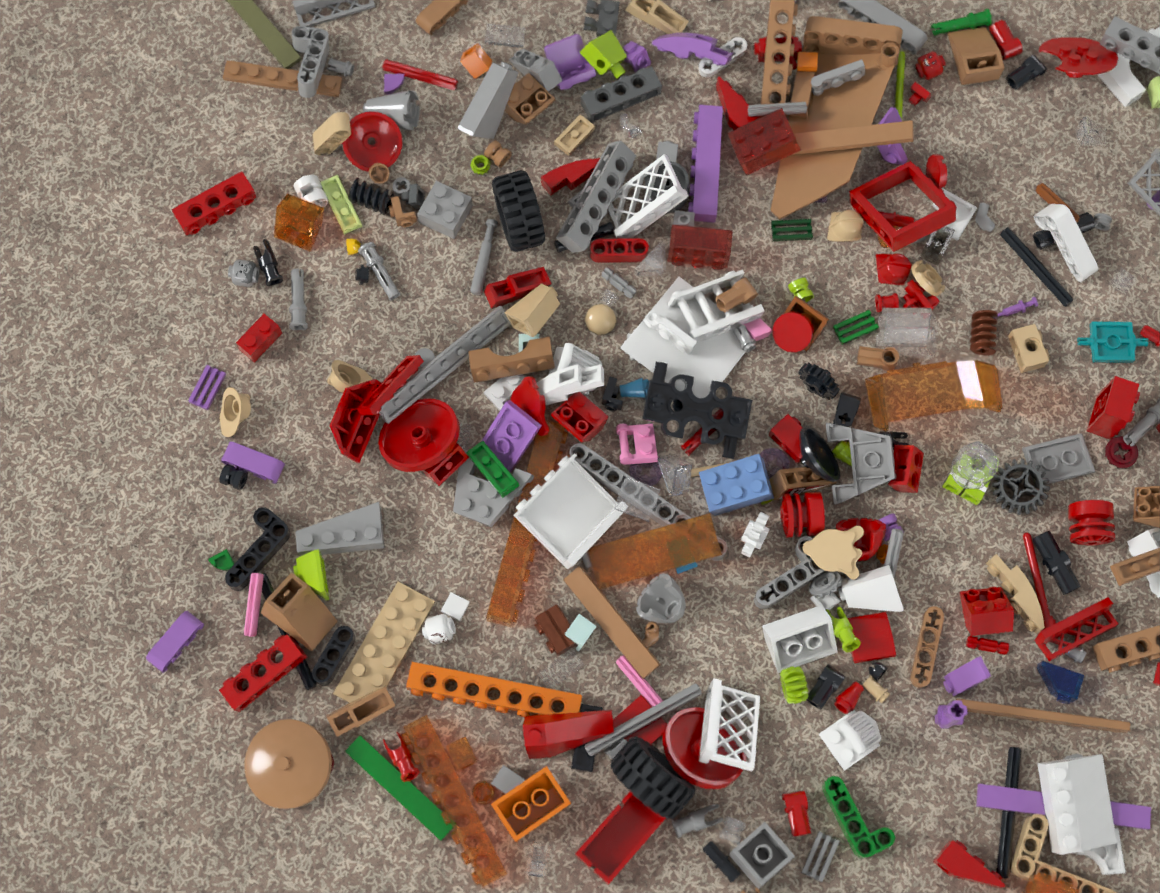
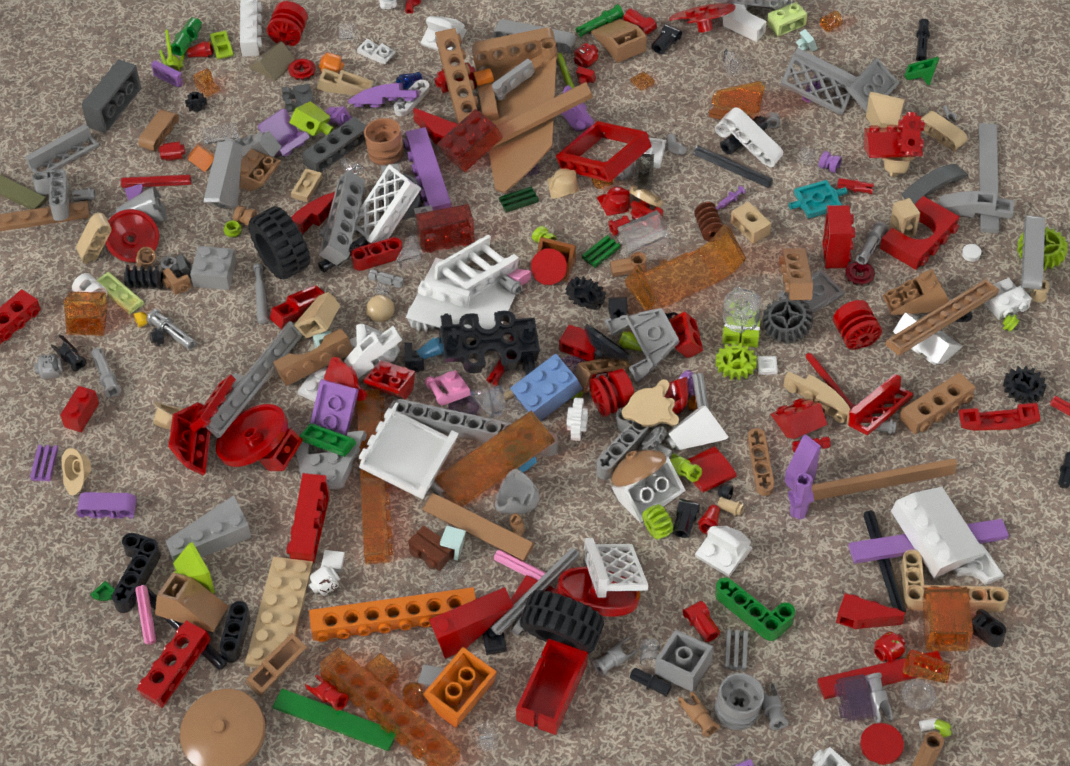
camera: 15 degrees left, 20 degrees down
(174, 640) = (80, 667): medium lavender beam -> none
(234, 477) = (92, 521): black wheel -> none
(445, 554) = (309, 517): none -> red wedge
(447, 42) = (172, 151): none -> red brick
(637, 499) = (464, 423): clear piece -> none
(672, 109) = (384, 141): none -> nougat wheel
(725, 33) = (408, 79): none -> clear blue cone
(740, 293) = (493, 249): medium nougat piece -> none
(788, 108) = (484, 109): light grey axle -> none
(796, 617) = (637, 467): none -> medium nougat dish
(937, 170) = (621, 117): red tile -> none
(943, 510) = (736, 361): none -> lime gear
(978, 532) = (767, 365): none -> white tile
(980, 119) = (642, 81): none -> clear orange tile
(1051, 437) = (796, 274): none -> medium nougat brick
(1056, 562) = (842, 365): black piece -> none
(1061, 681) = (883, 449): clear blue slope -> none
(1076, 186) = (745, 97): none -> clear orange slope
(1144, 299) = (829, 161): none -> medium lavender wheel

